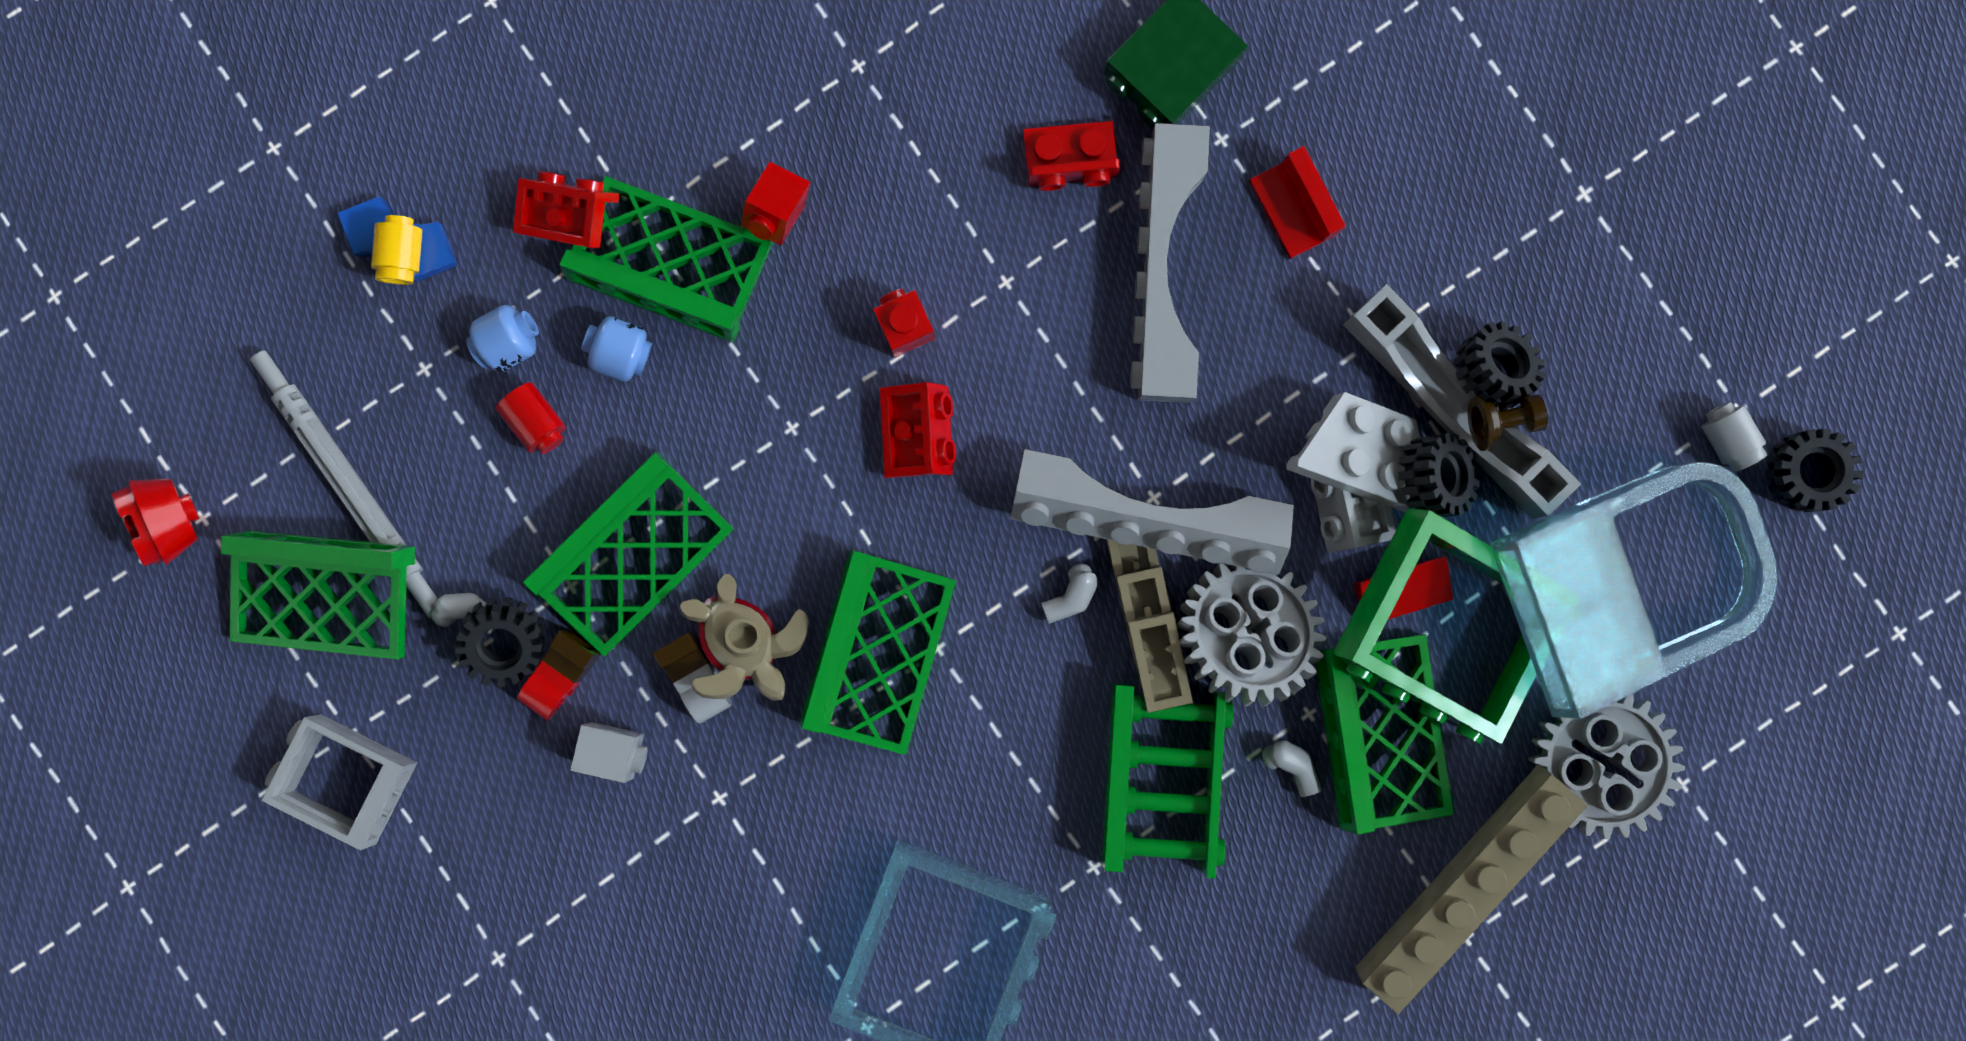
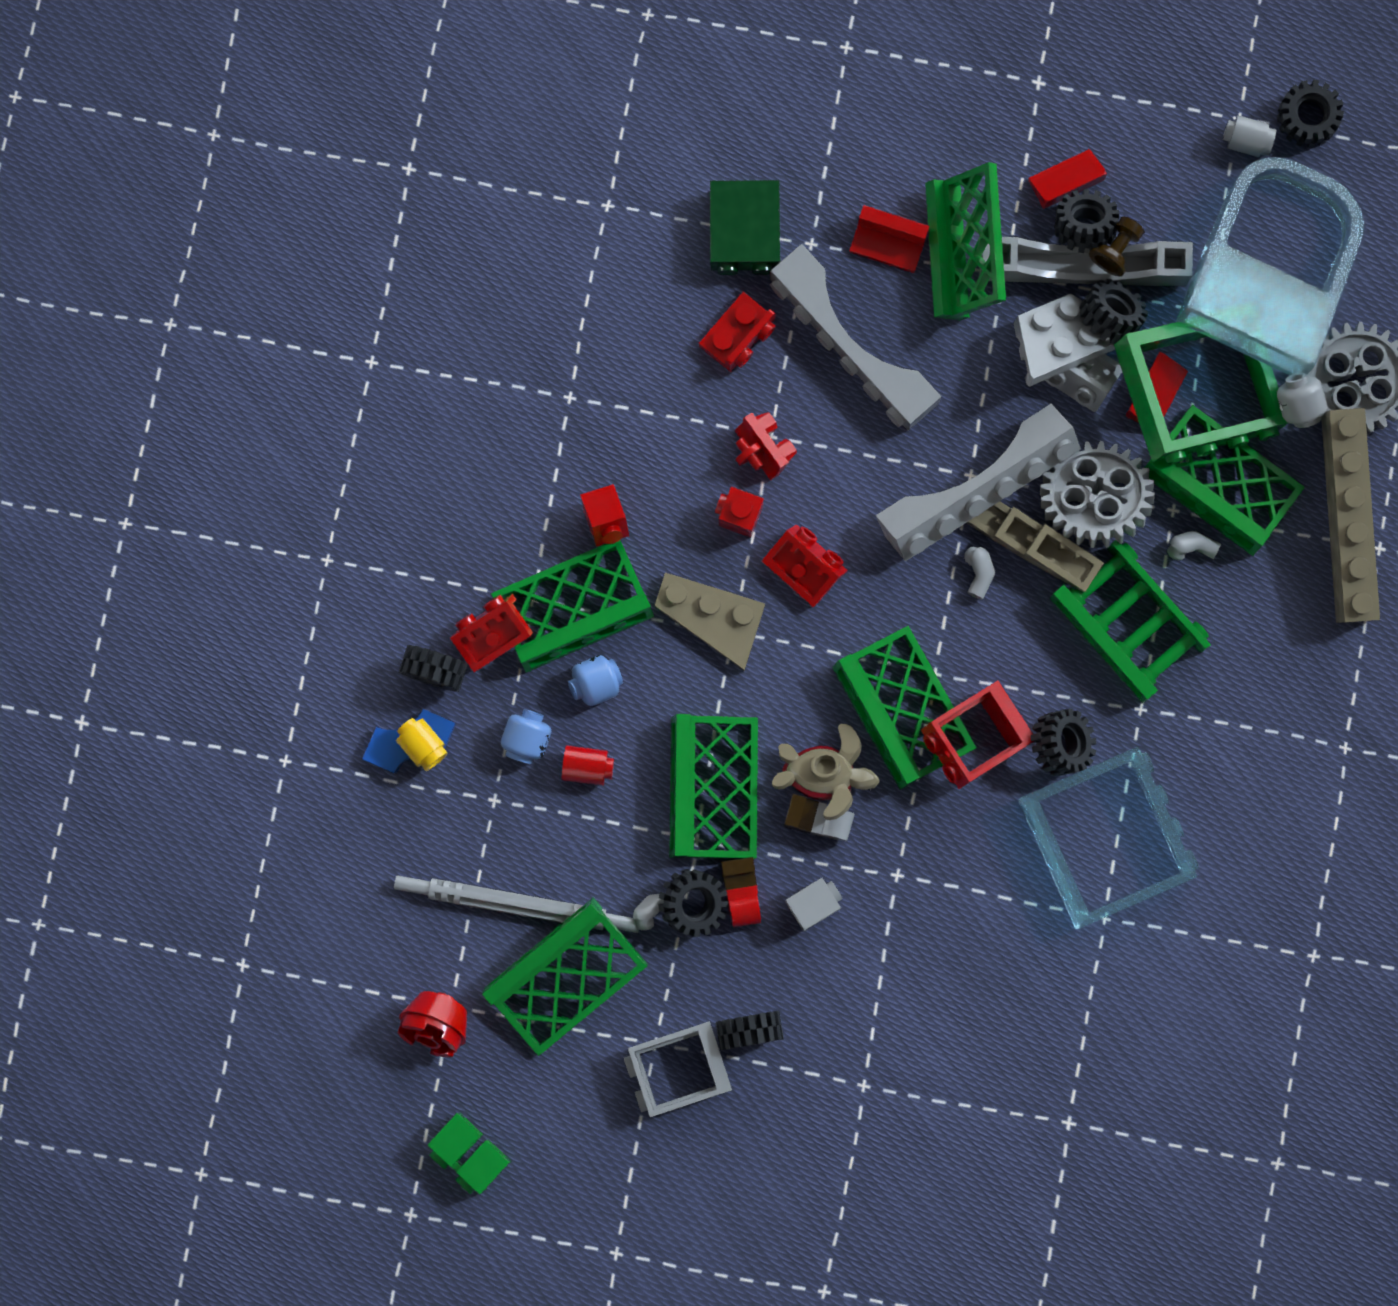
camera: 40 degrees left, 5 degrees down
(75, 693) = (453, 1144): none -> green piece
(432, 811) = (749, 1030): none -> black tyre
(475, 191) = (433, 668): none -> black tyre
(786, 395) = (713, 615): none -> dark tan wing
(957, 757) = (1004, 716): none -> red window
(980, 279) = (759, 447): none -> red hips
(999, 846) = (1050, 746): none -> black tyre
(1352, 260) = (950, 241): none -> green fence
(1531, 310) = (1070, 175): none -> red slope
(1534, 736) = (1302, 400): none -> light grey head

